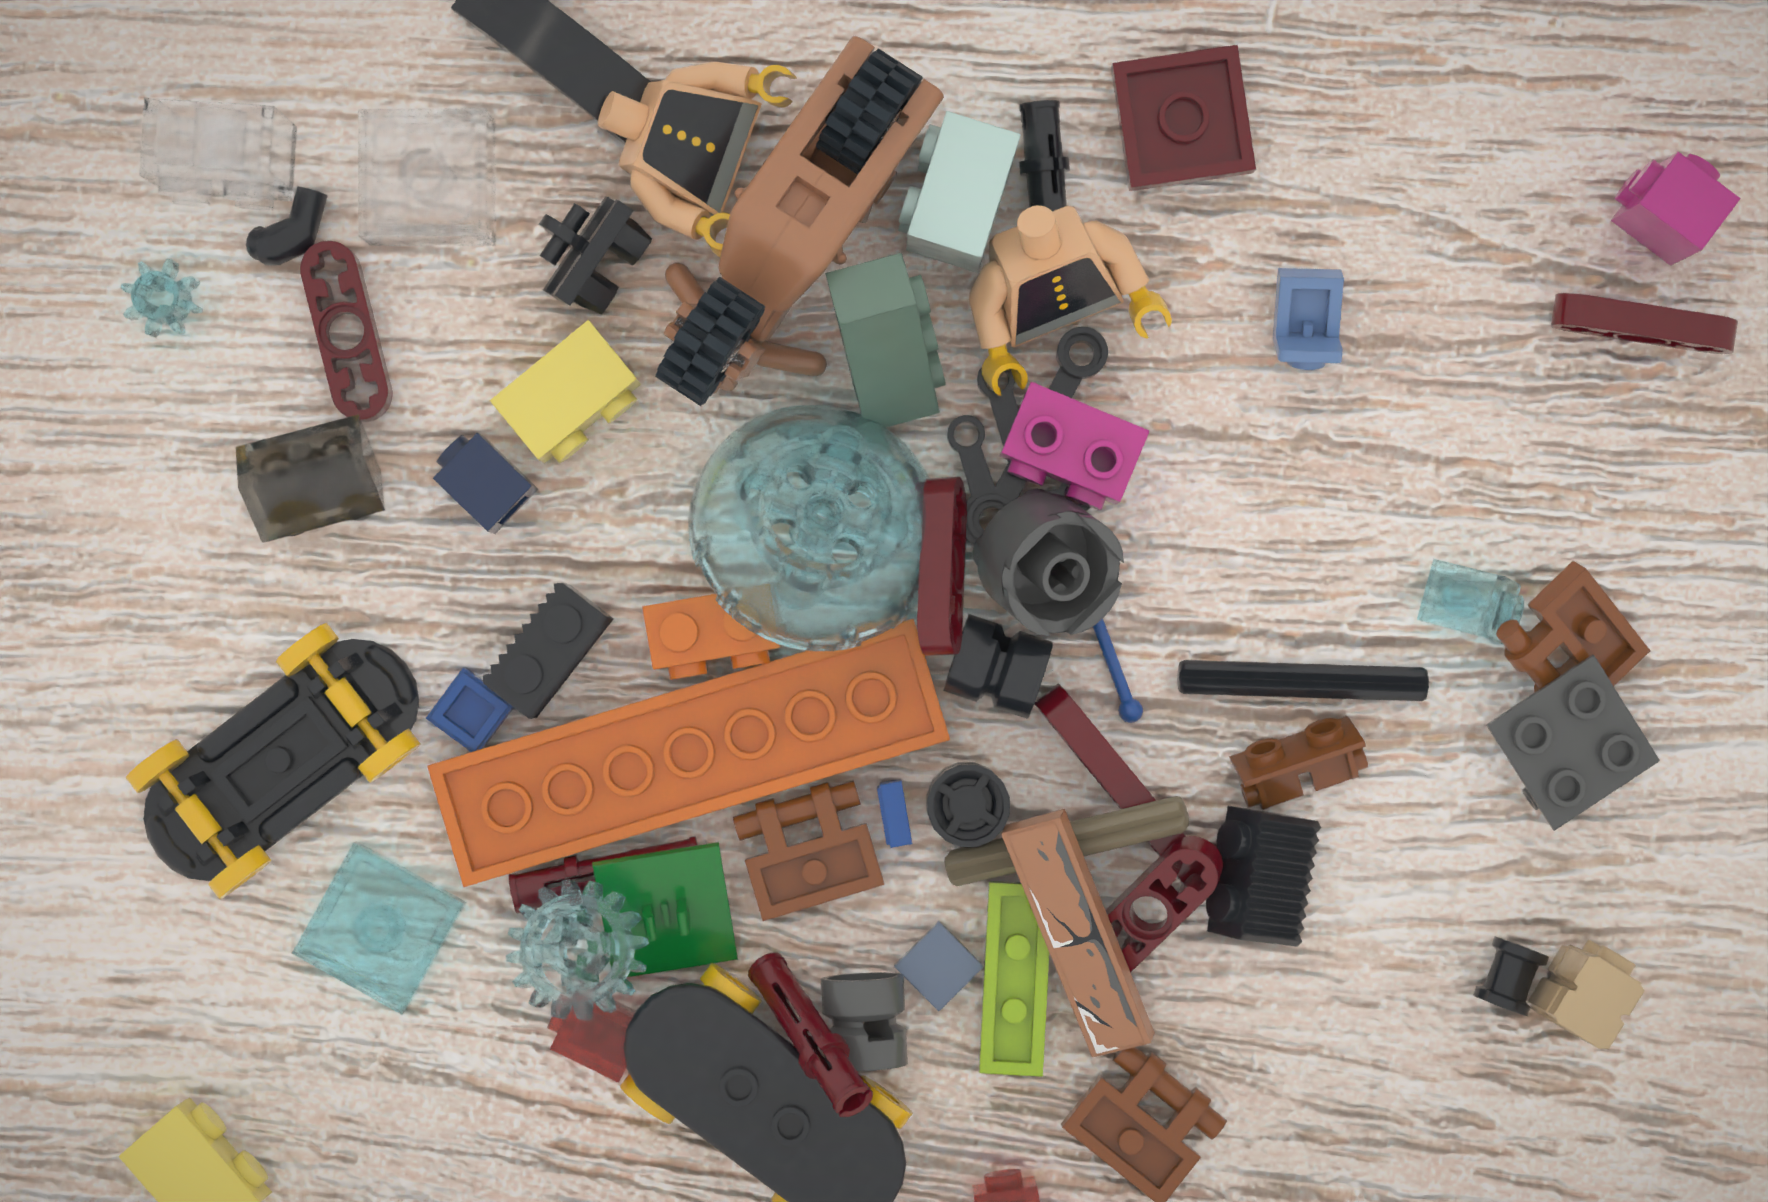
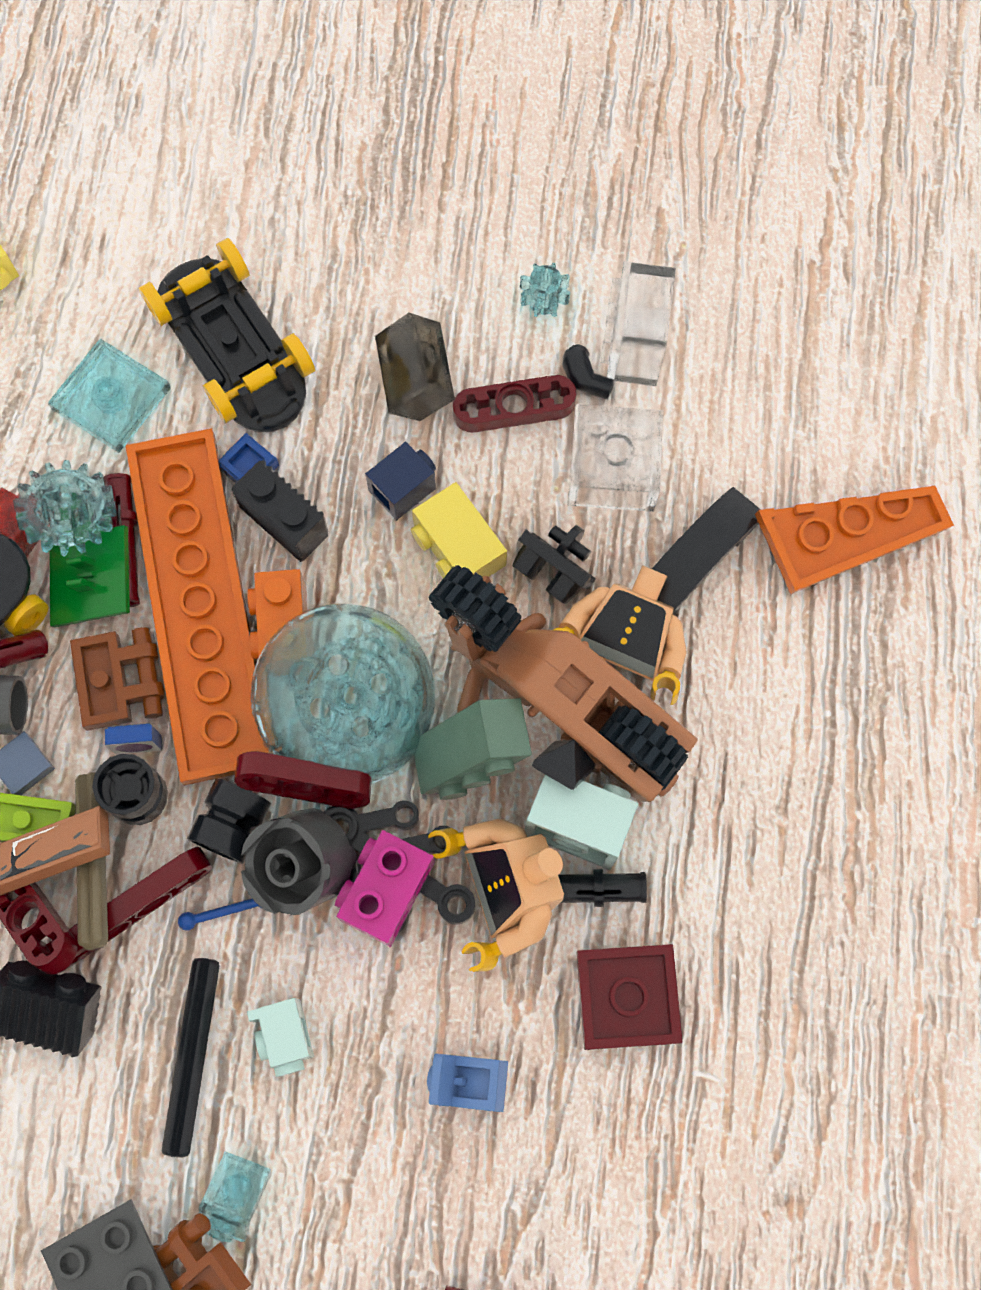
camera: 95 degrees right, 15 degrees down
(902, 212) = (565, 763): none -> black slope
(1270, 562) = (282, 1036): none -> light aqua brick
(1326, 749) = (126, 1024): dark orange hinge -> none

